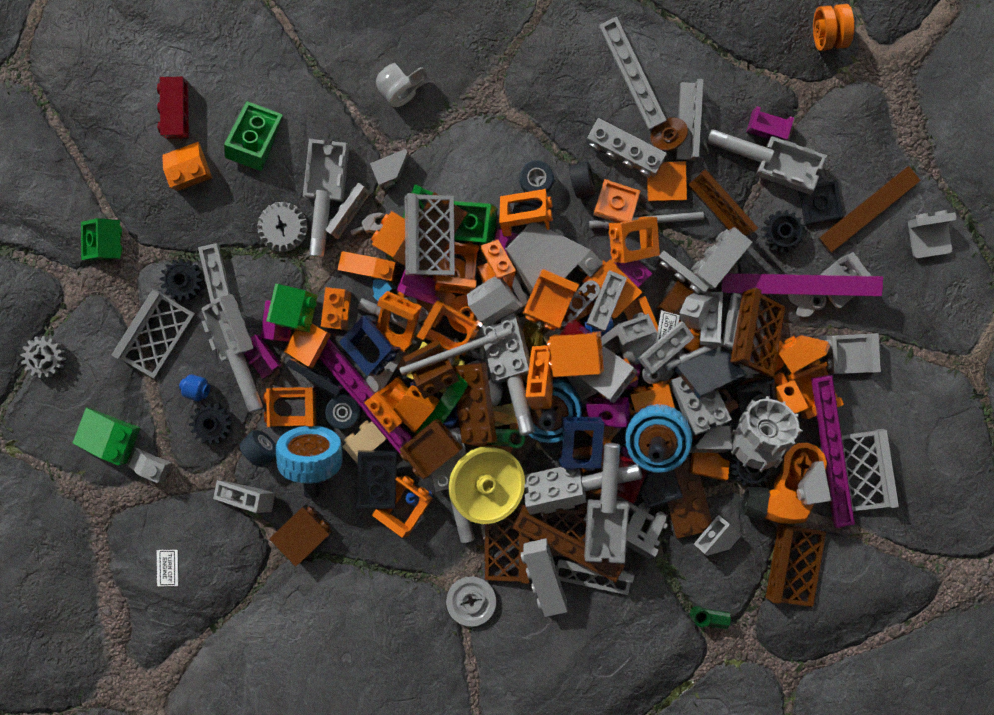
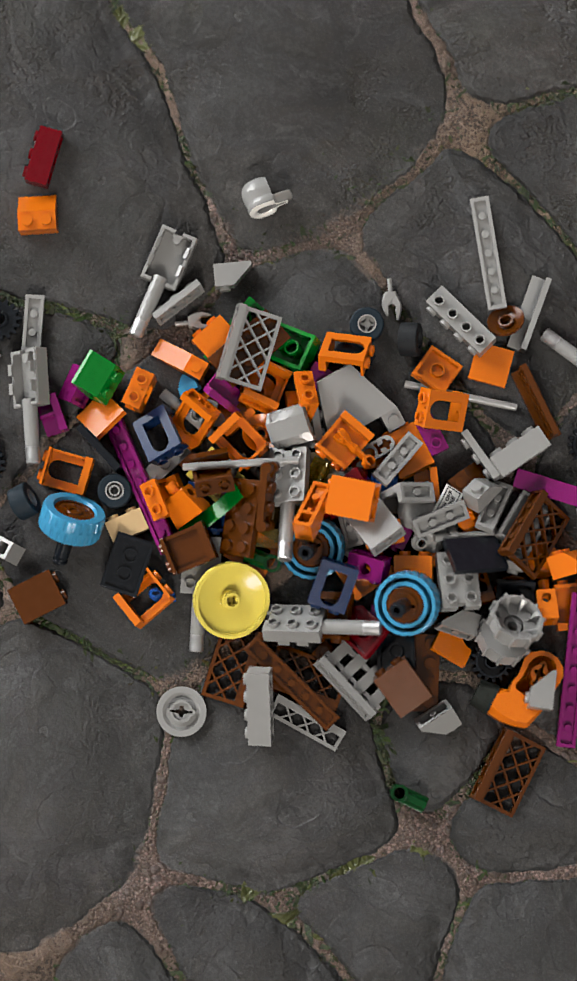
camera: 25 degrees right, 5 degrees down
(252, 136) = (110, 205): green slope -> none
(294, 232) = (120, 308): light grey gear -> none
(491, 378) = (266, 503): none -> reddish brown plate
(548, 296) = (343, 438): none -> orange piece
(553, 145) = (391, 298): none -> light grey hand
(607, 517) = (335, 662): light grey piece -> none
(675, 518) = (401, 686): none -> reddish brown panel

